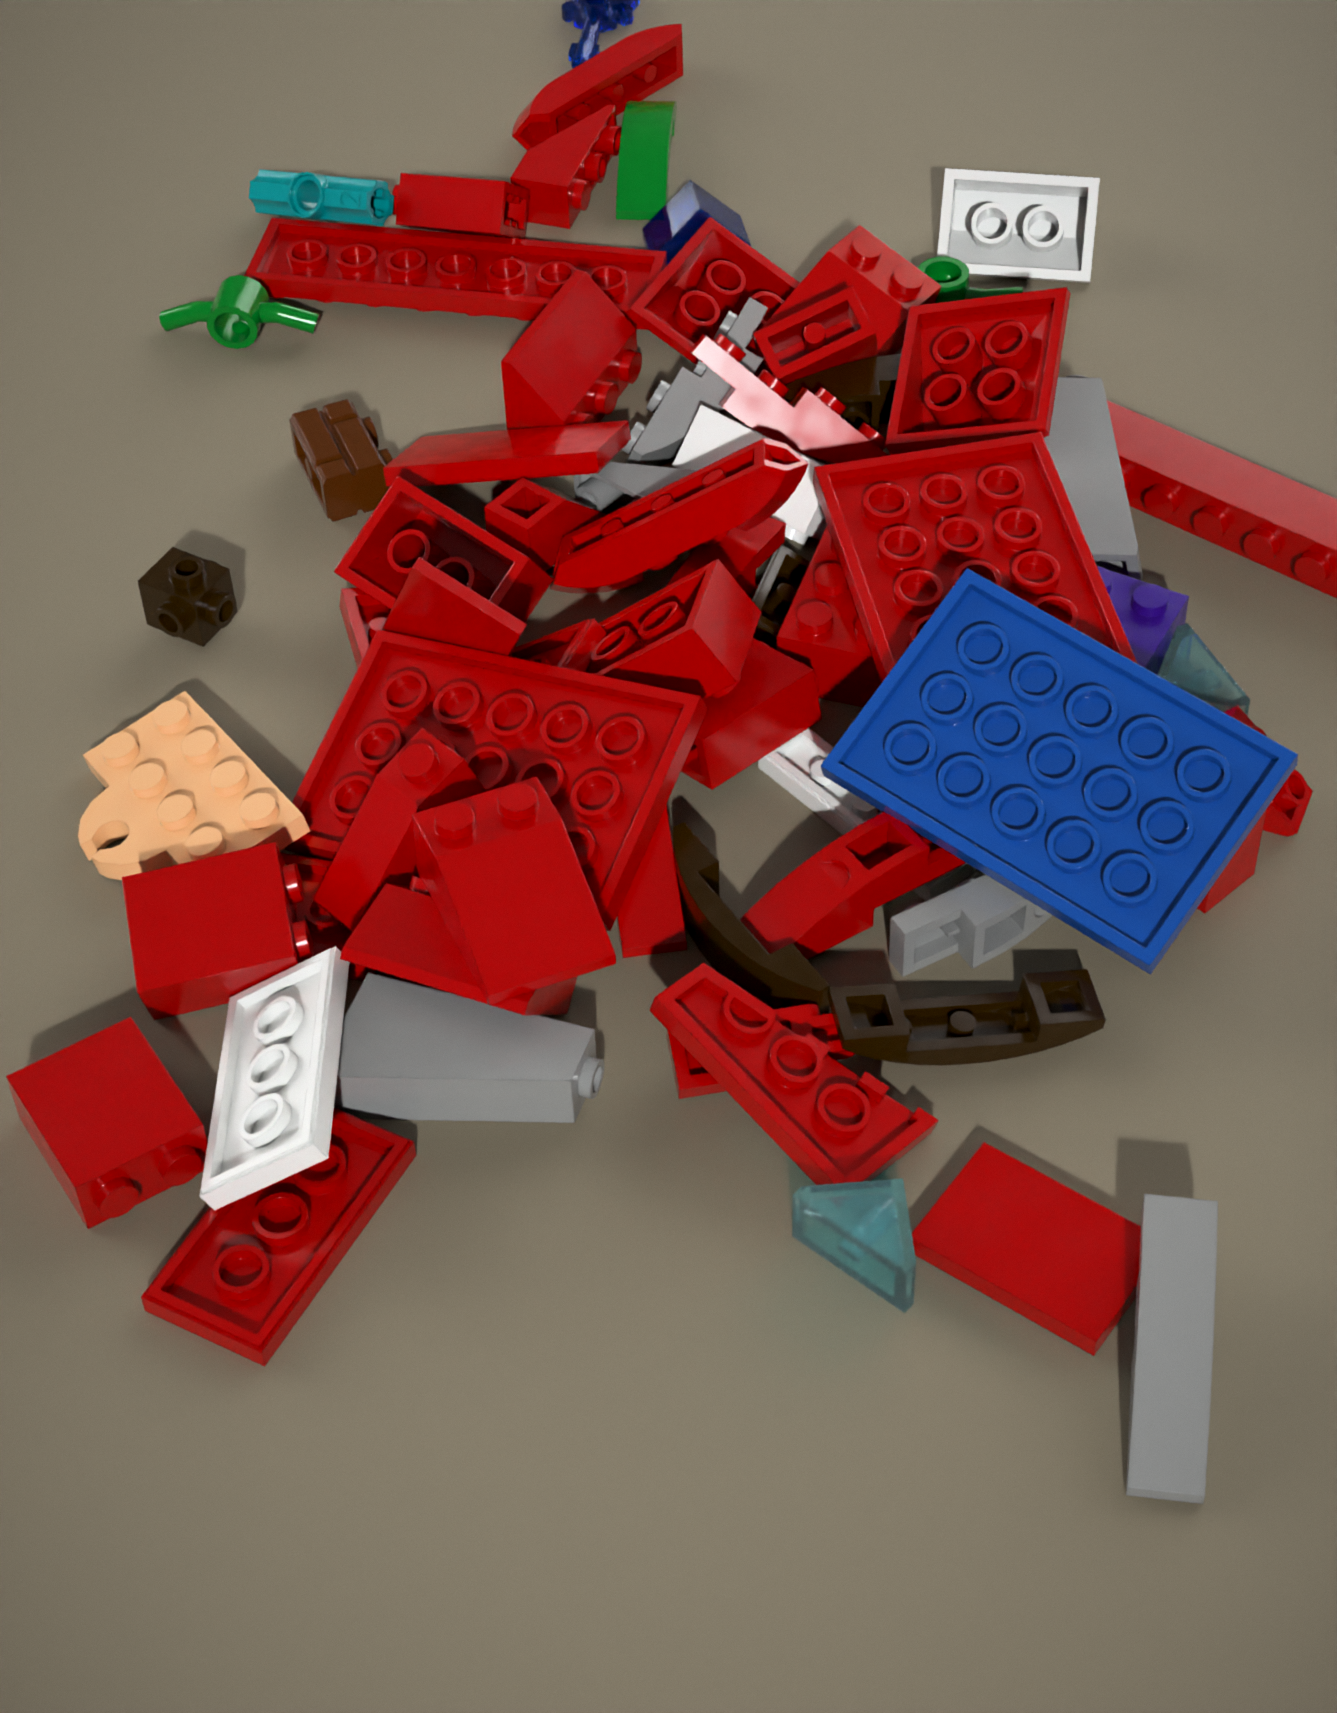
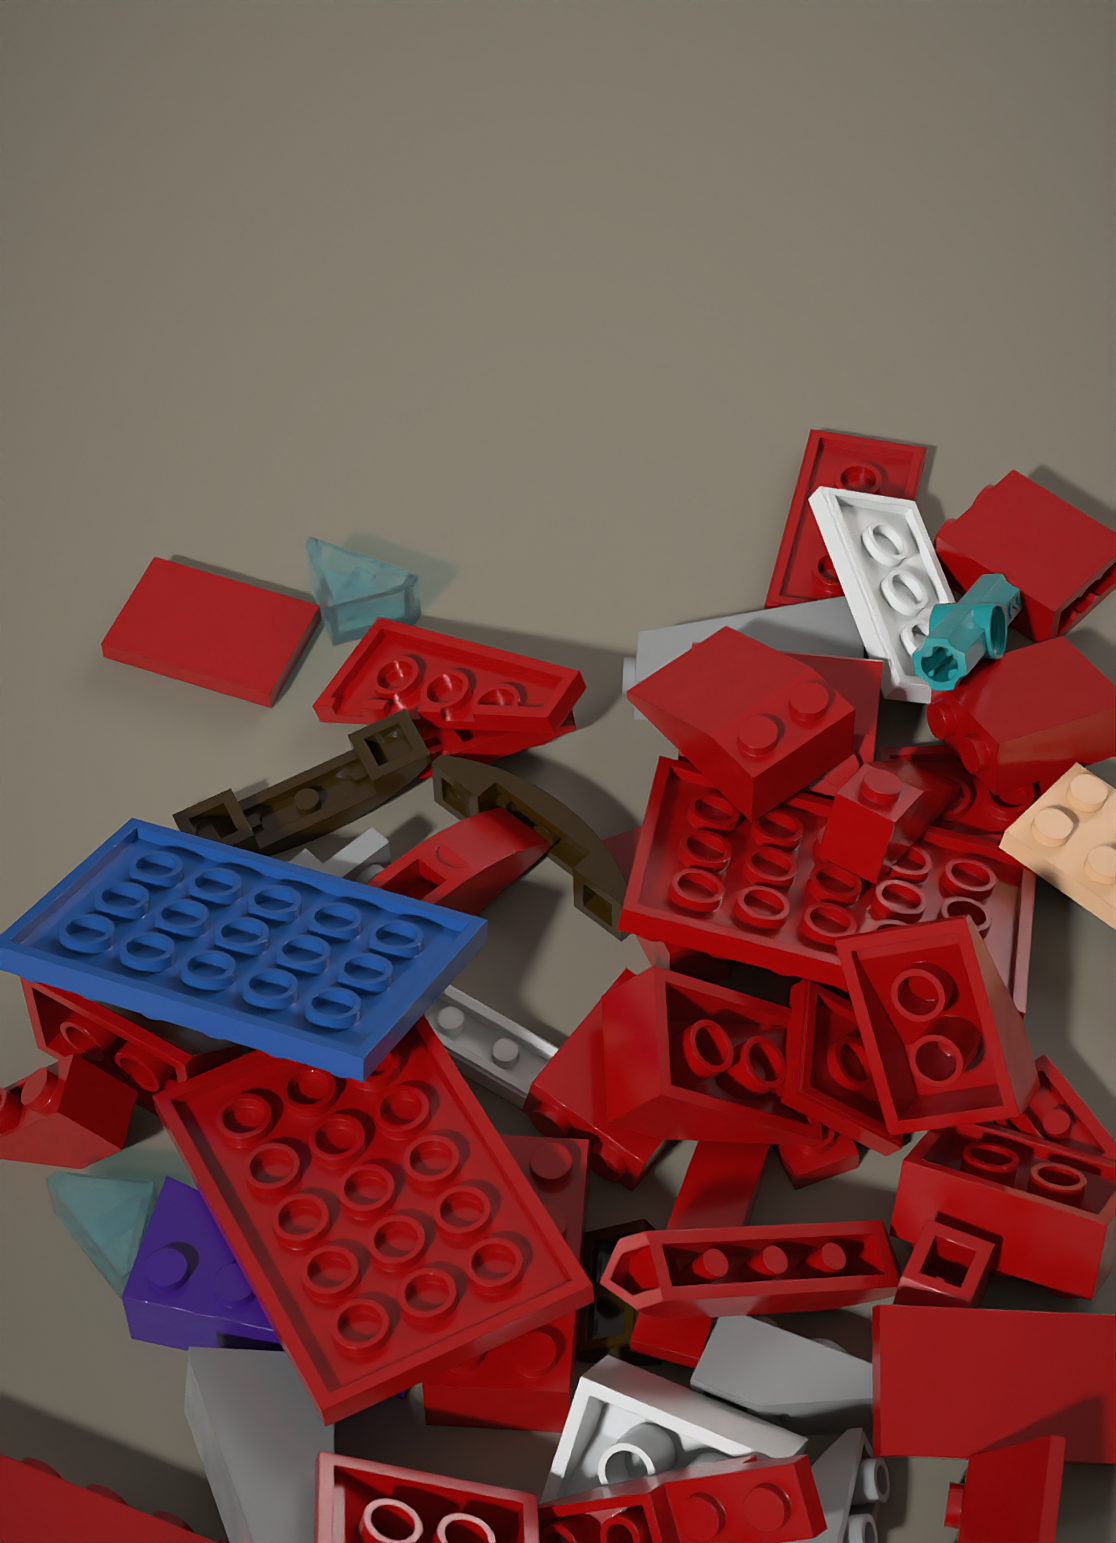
camera: 165 degrees right, 5 degrees up
(236, 980) = (967, 632): none -> teal piece
(1172, 1349) = (91, 558): light grey slope -> none

